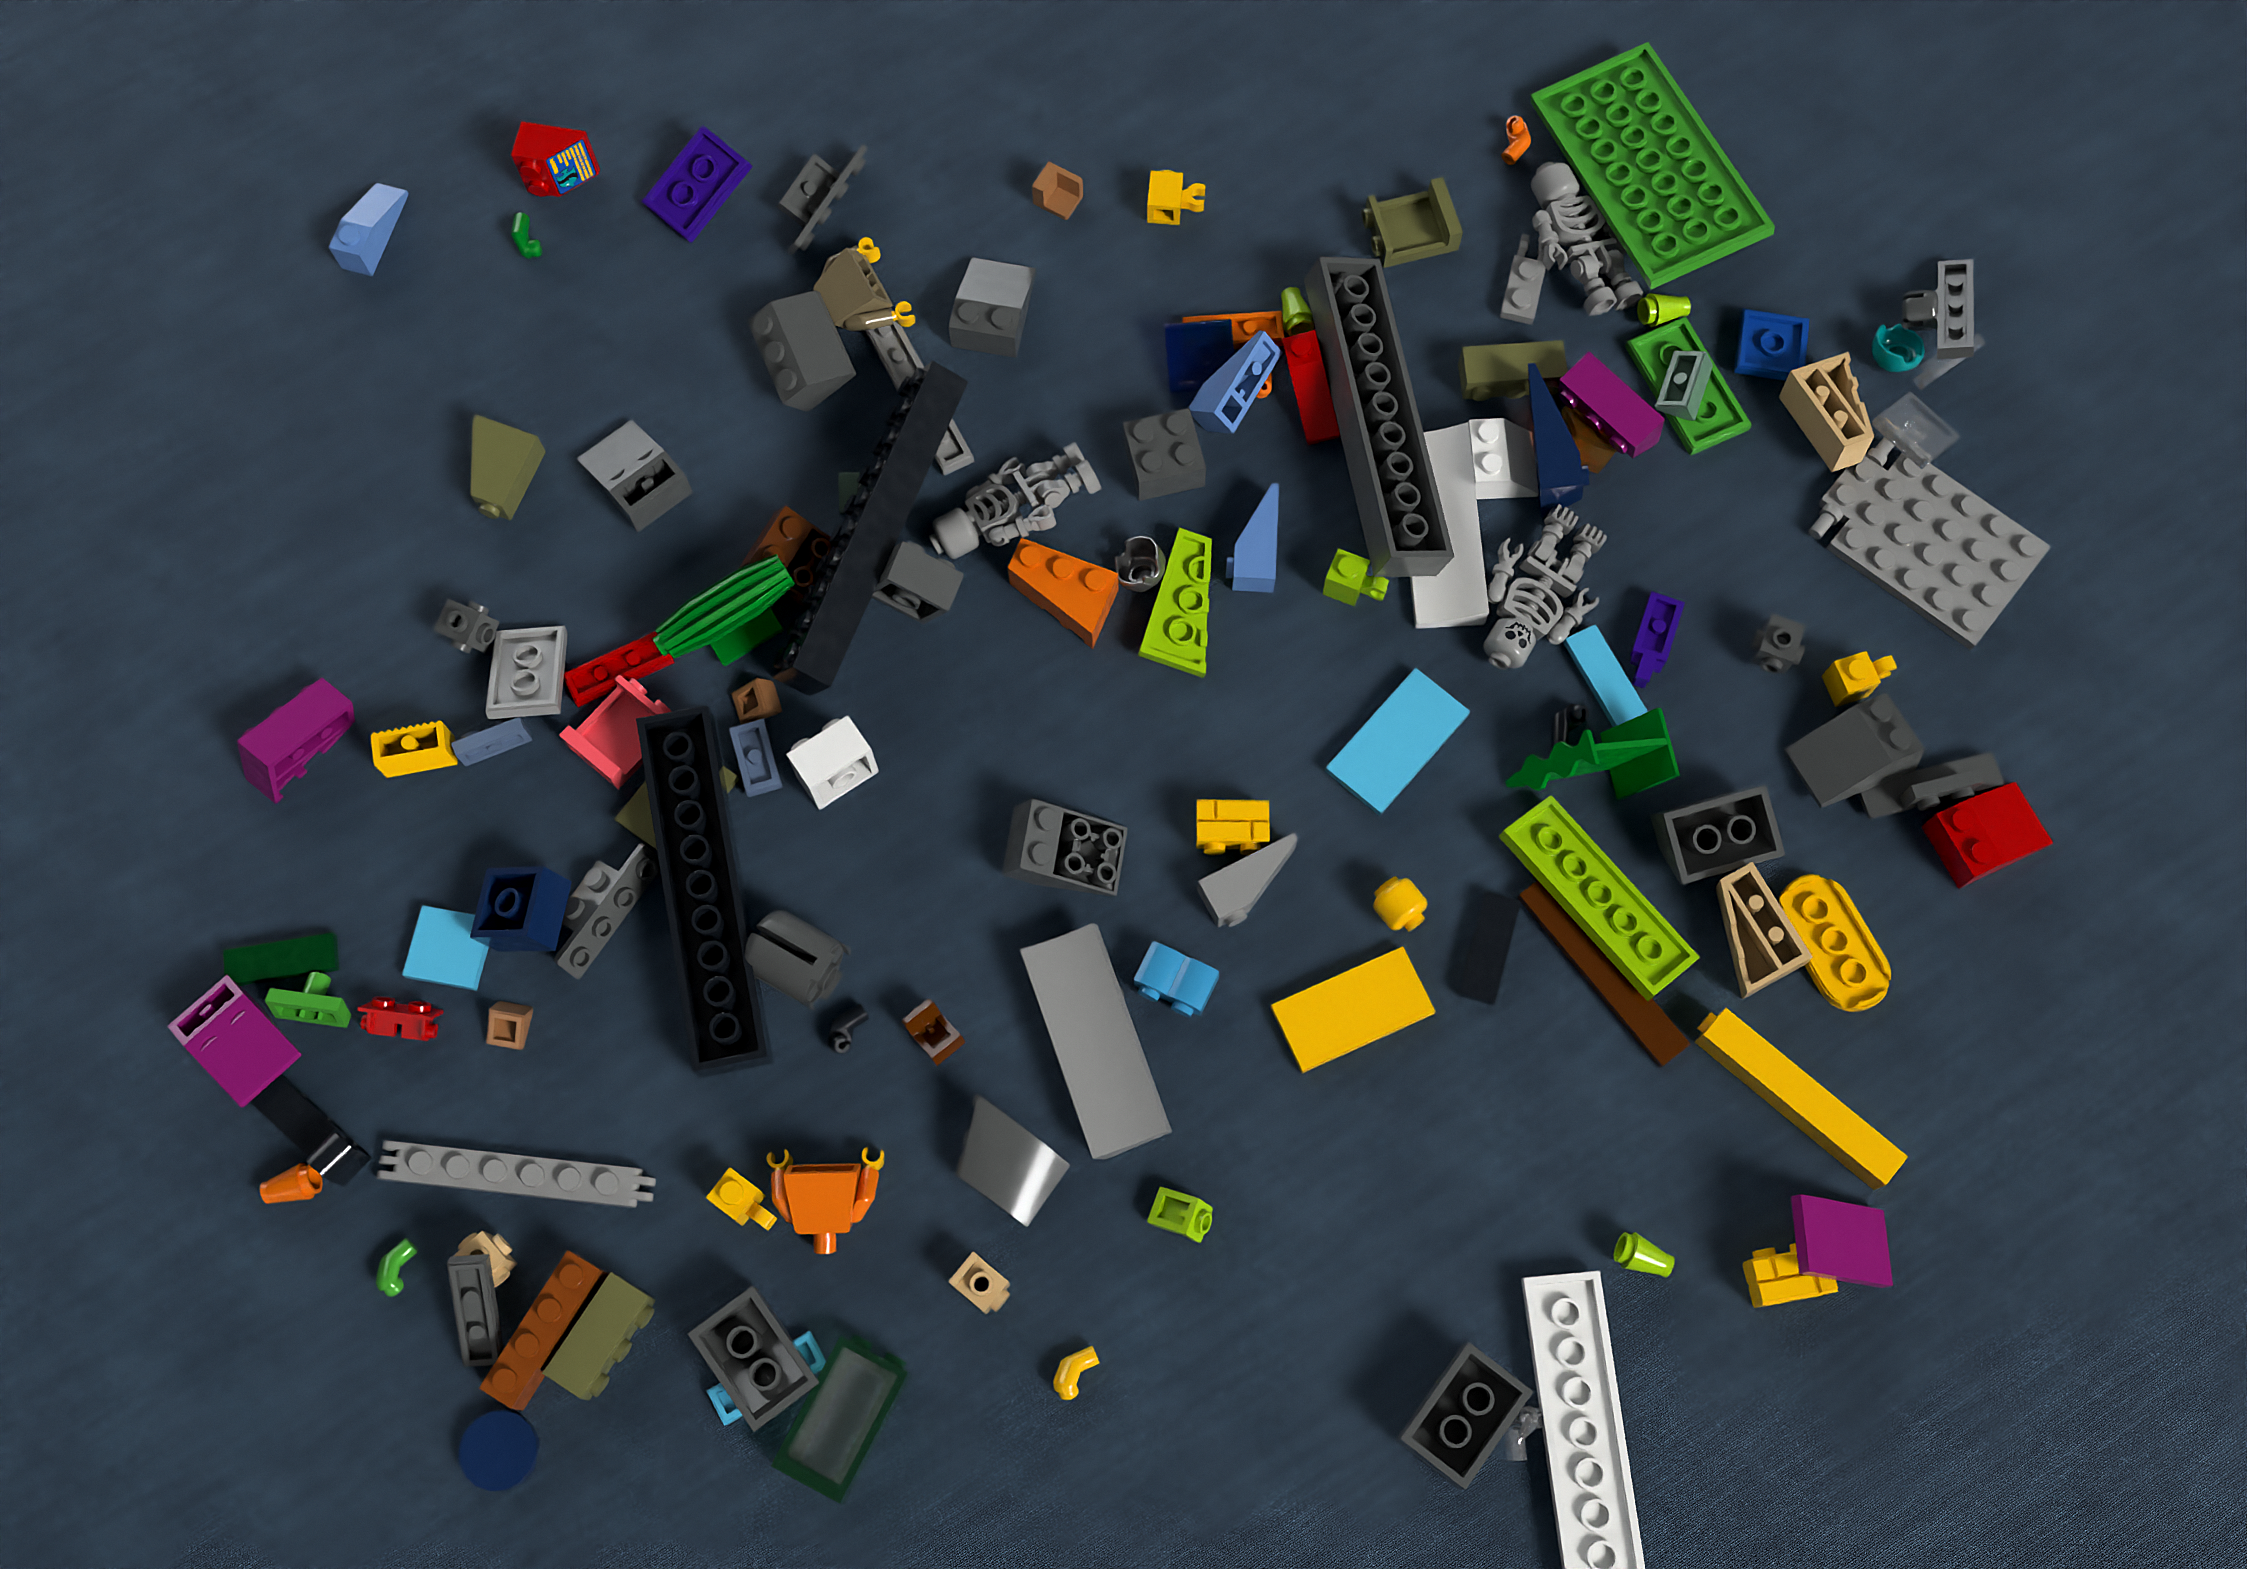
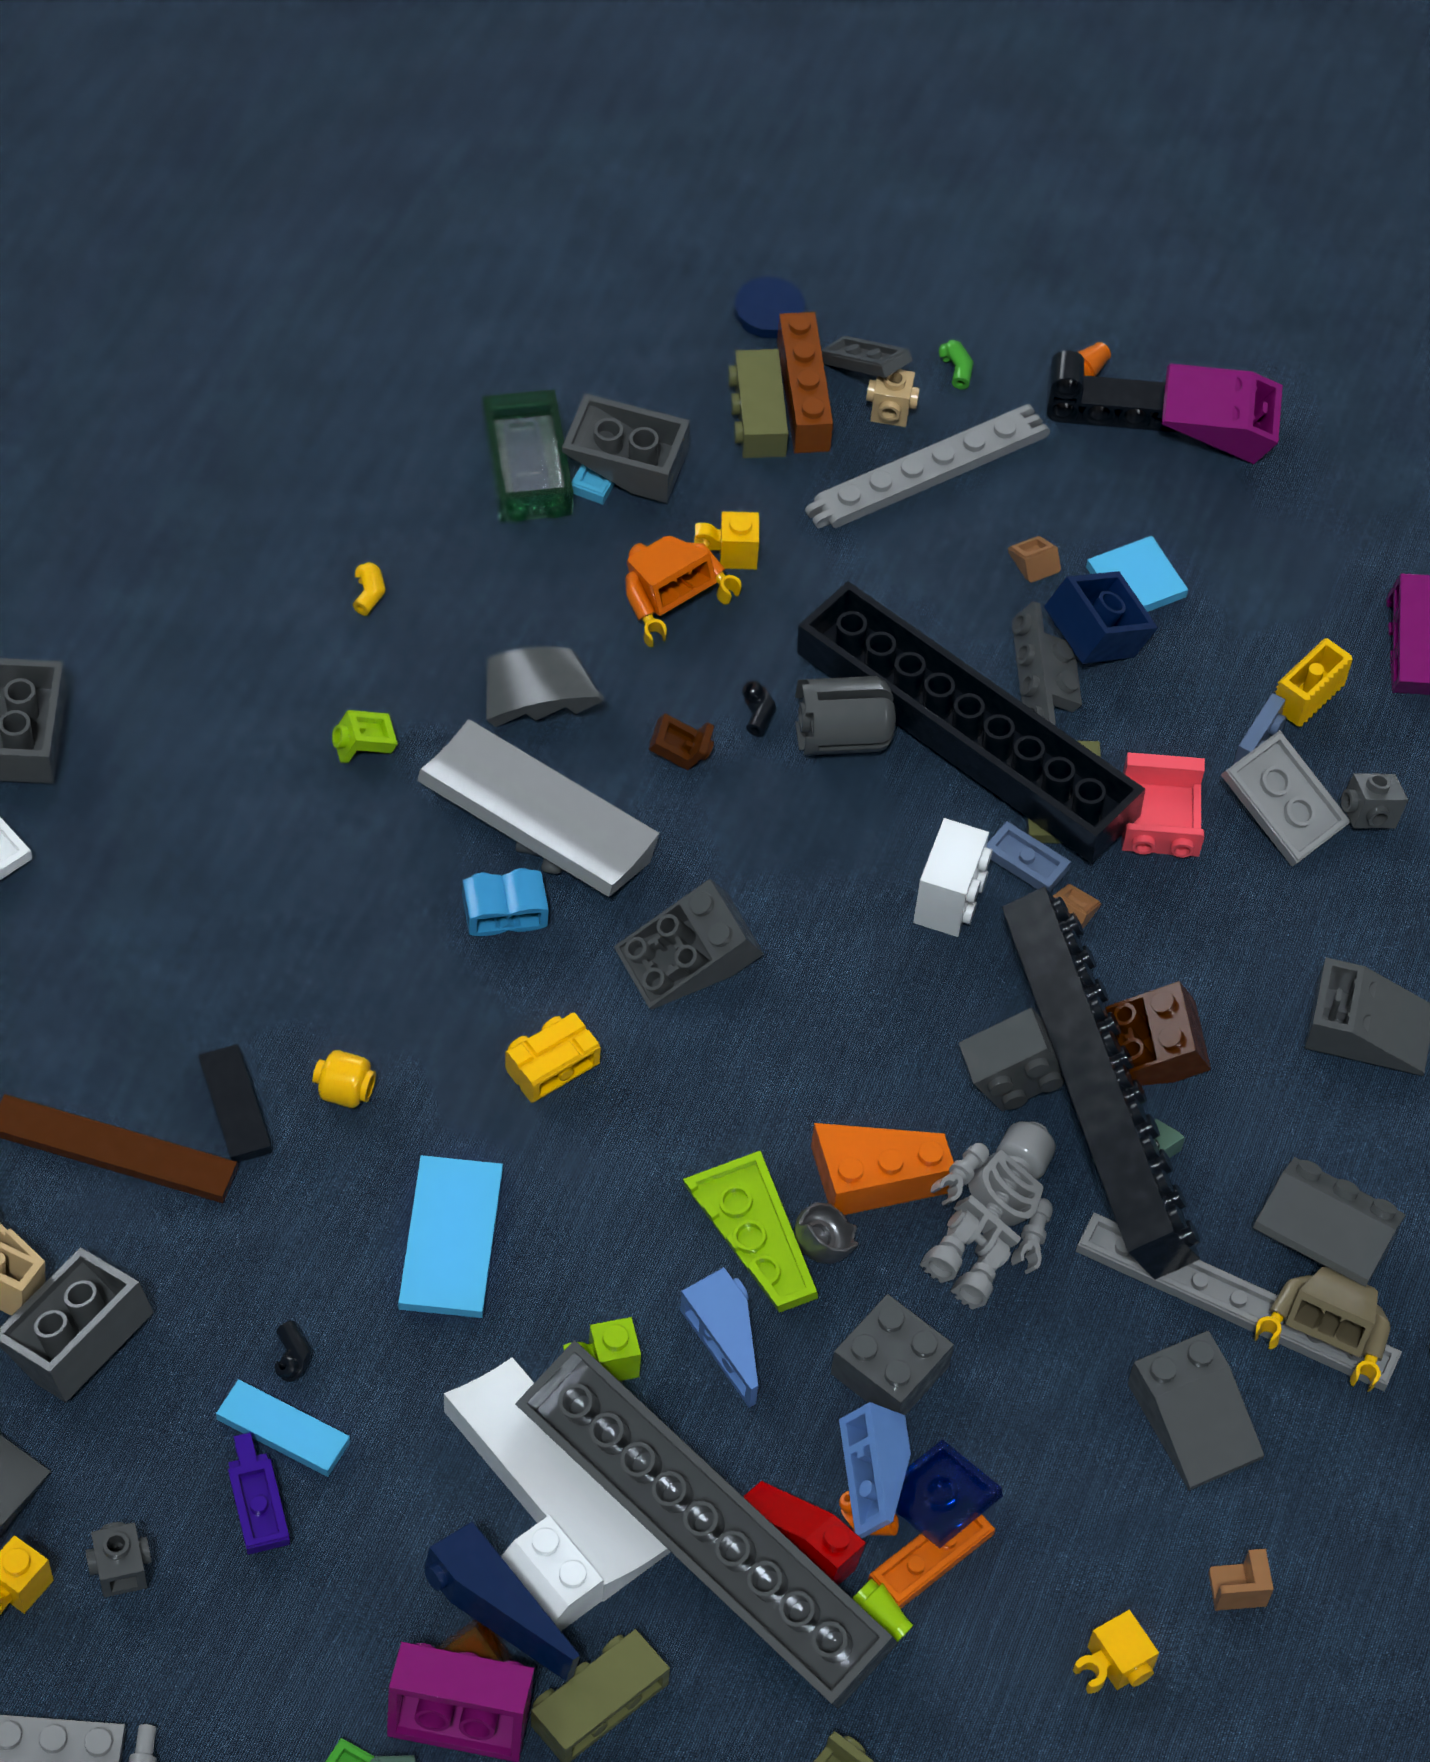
camera: 140 degrees right, 15 degrees down
(282, 959) = (1257, 495): dark green tile -> none
(310, 1004) = (1201, 475): bright green tile -> none
(385, 1015) = (1123, 511): red hinge -> none
(630, 661) = (1217, 862): red tile -> none
(728, 614) = (1157, 943): green plate -> none
(965, 1280) = (492, 597): tan brick -> none
(1237, 887) = (509, 1004): light grey slope -> none
(1352, 1009) = (327, 979): yellow tile -> none
(1536, 613) = (403, 1429): light grey piece -> none
(1599, 897) = (157, 1198): lime plate -> none
(1634, 752) = (203, 1345): green piece -> none

